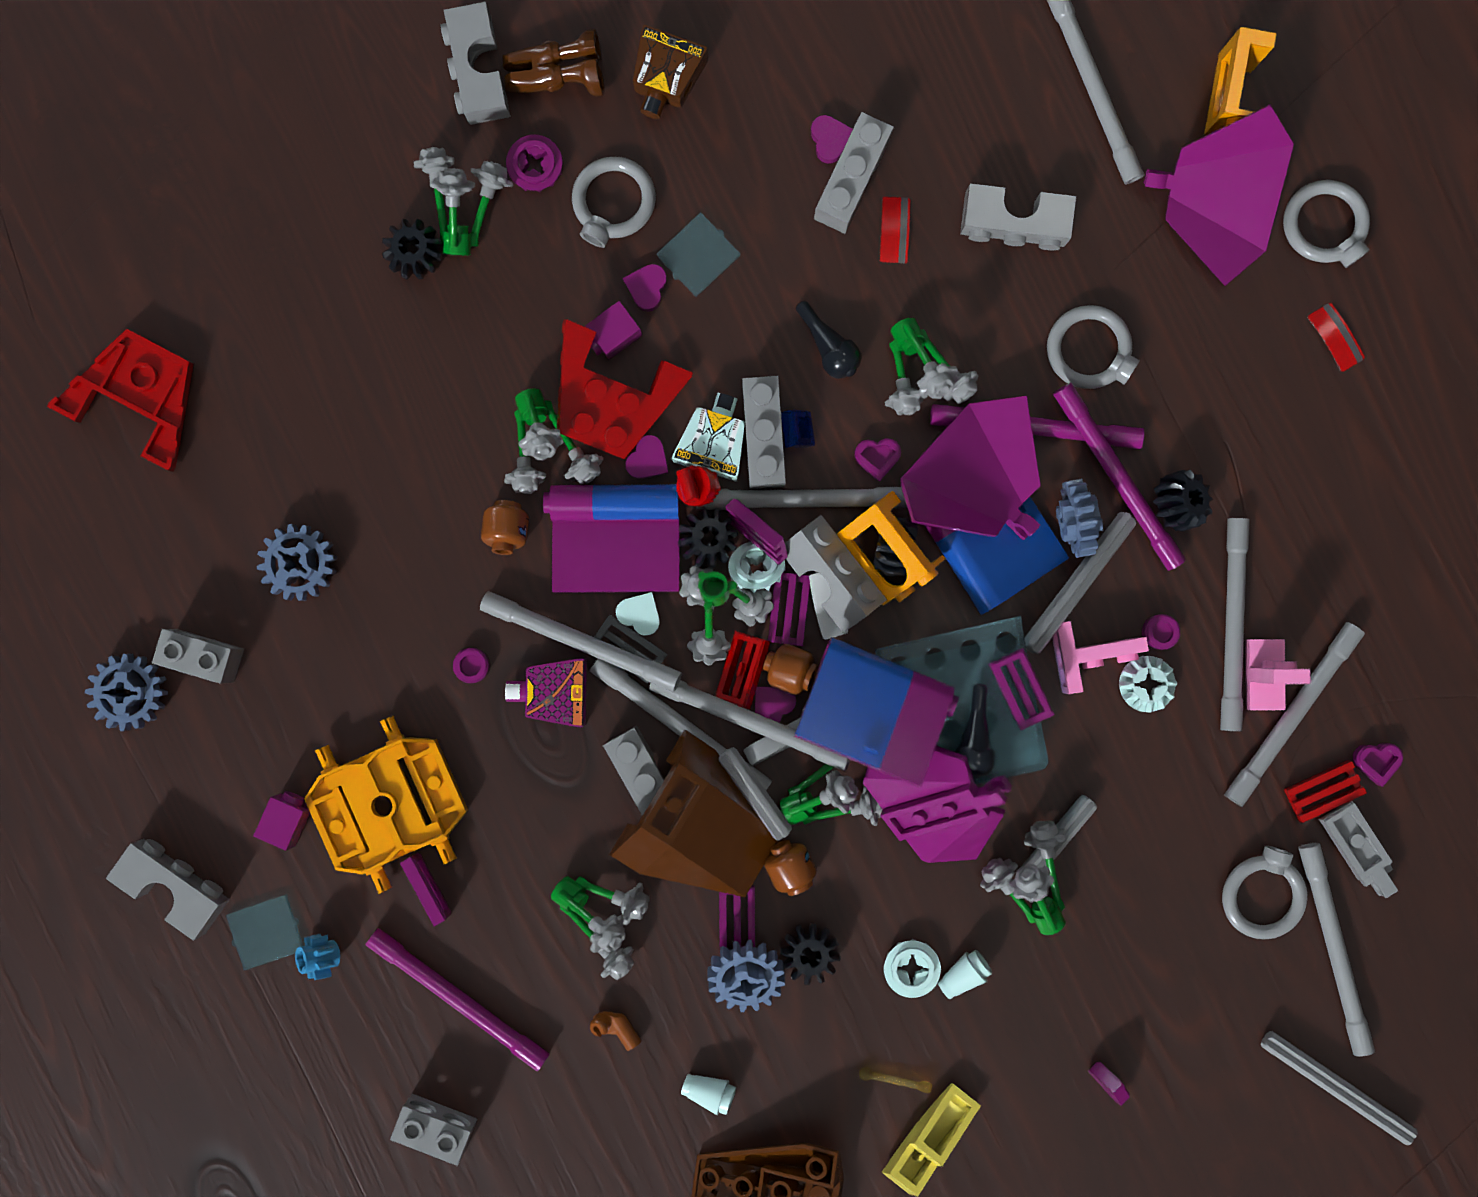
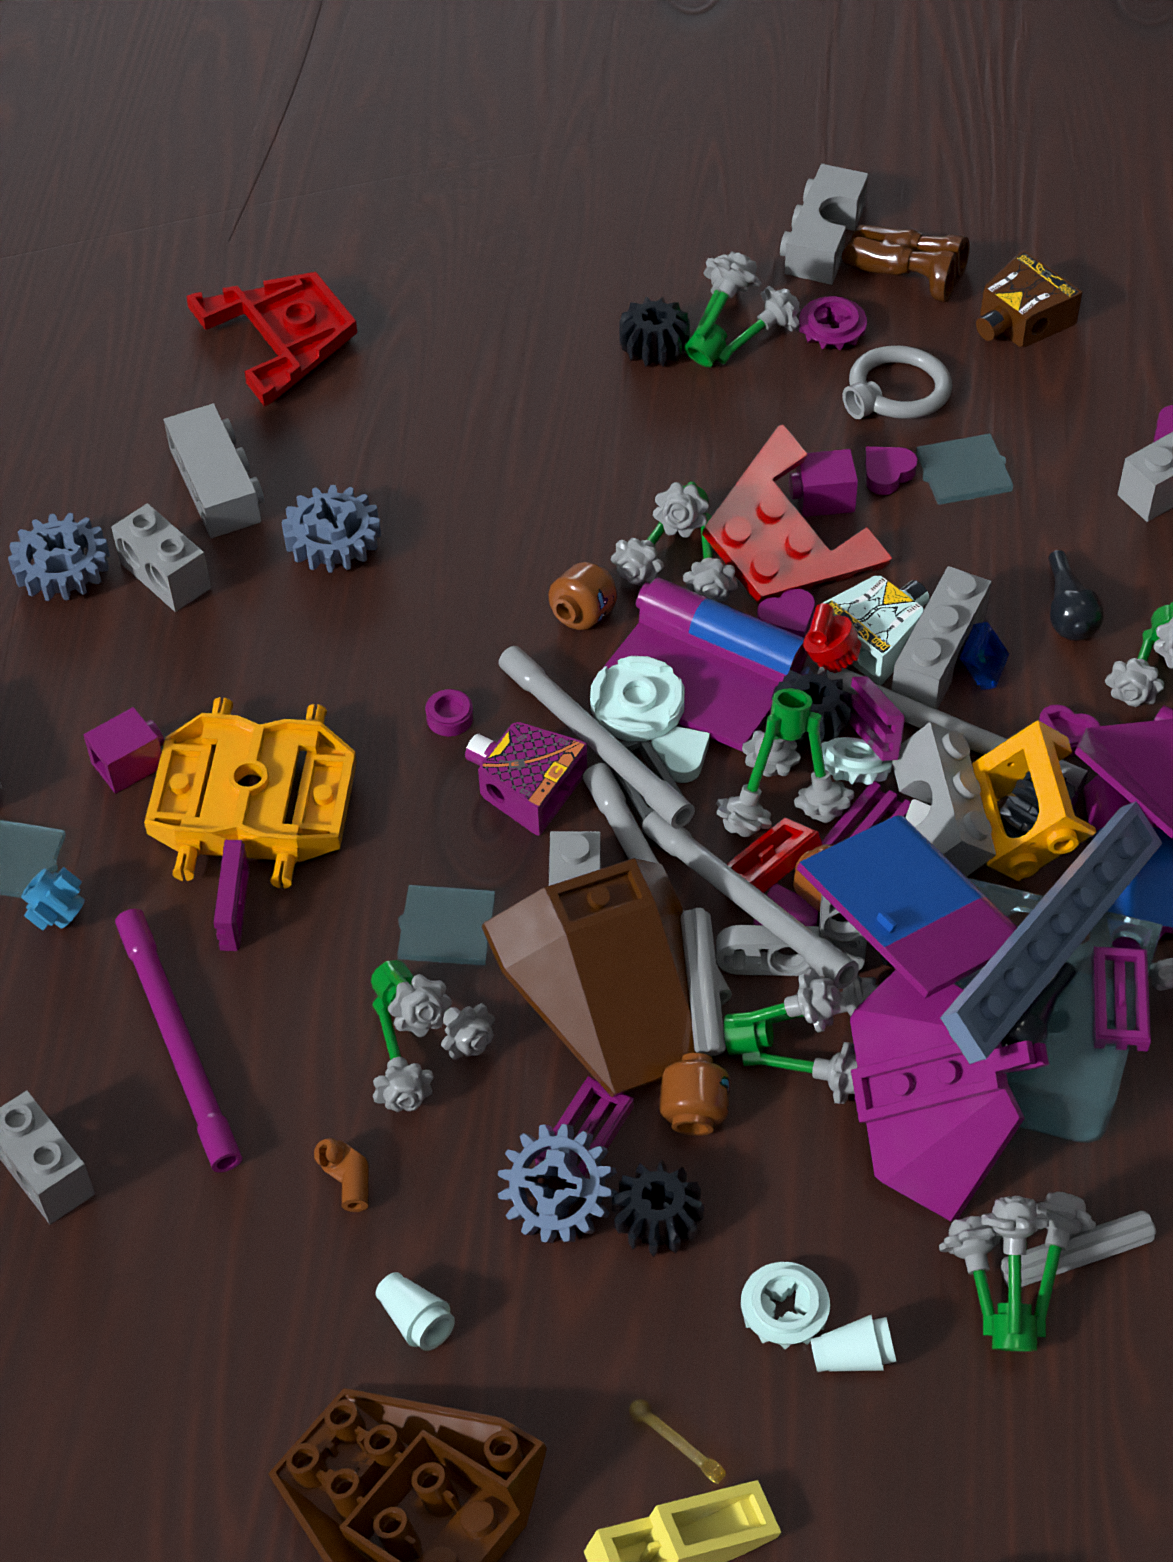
camera: 30 degrees right, 35 degrees down
(179, 556) = (214, 470): none -> light grey brick
(568, 825) = (445, 925): none -> clear light blue piece
(591, 595) = (637, 698): none -> light aqua tile
(968, 681) = (1050, 934): none -> sand blue plate

